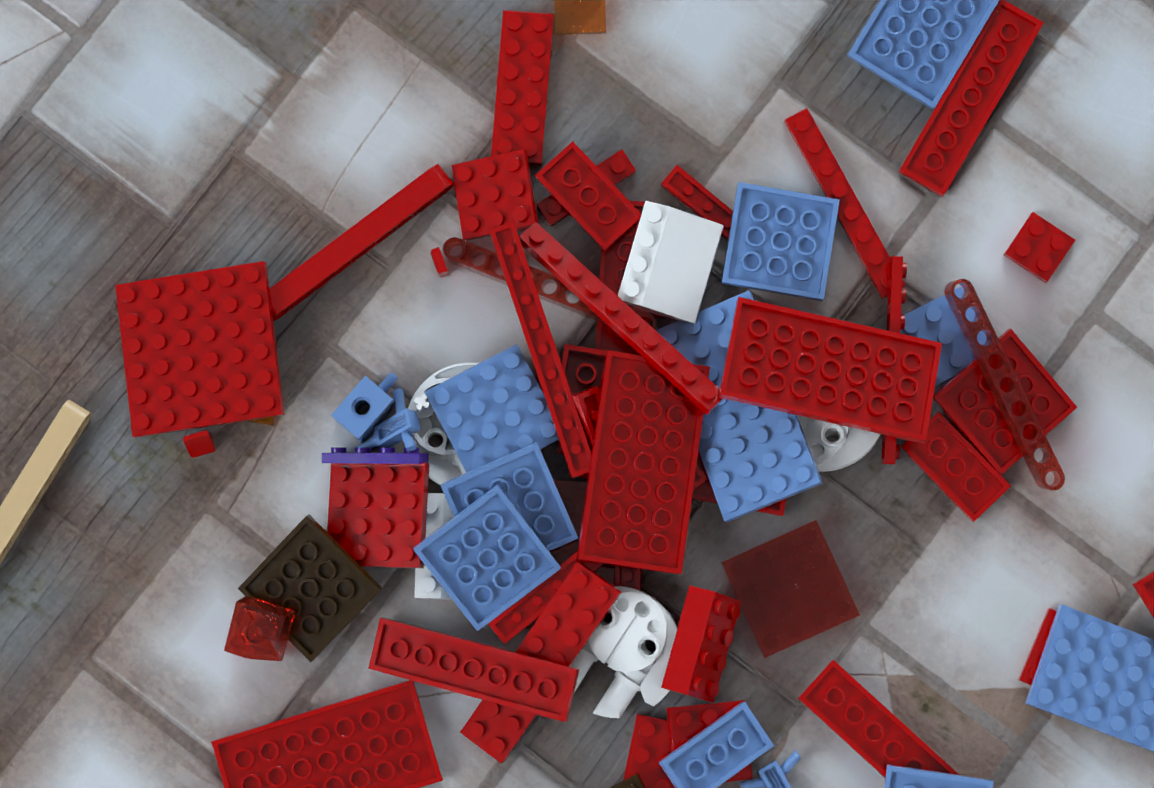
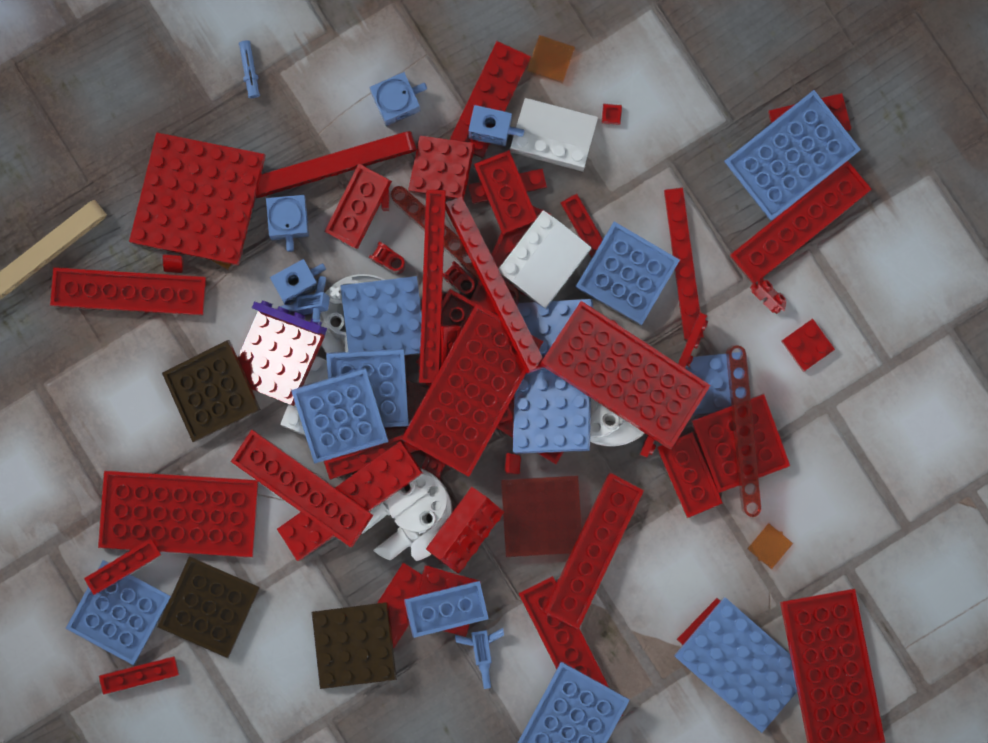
camera: 20 degrees right, 0 degrees up
(155, 500) = (128, 291): none -> red plate
(218, 186) = (253, 91): none -> medium blue pin
(259, 630) = (165, 406): clear red slope -> none
(324, 332) = (287, 219): none -> medium blue piece
(404, 129) = (396, 98): none -> medium blue piece
(408, 283) = (358, 206): none -> red plate
(469, 335) = (385, 257): none -> red piece
(548, 108) = (499, 133): none -> medium blue piece
(569, 327) = (457, 277): none -> red piece
(620, 101) = (554, 134): none -> white slope
(682, 49) = (611, 114): none -> red tile
(727, 536) = (512, 464): none -> red slope
(873, 609) = (593, 551): none -> red plate
(960, 196) = (775, 301): none -> red hinge
(1089, 517) = (770, 546): none -> clear orange piece

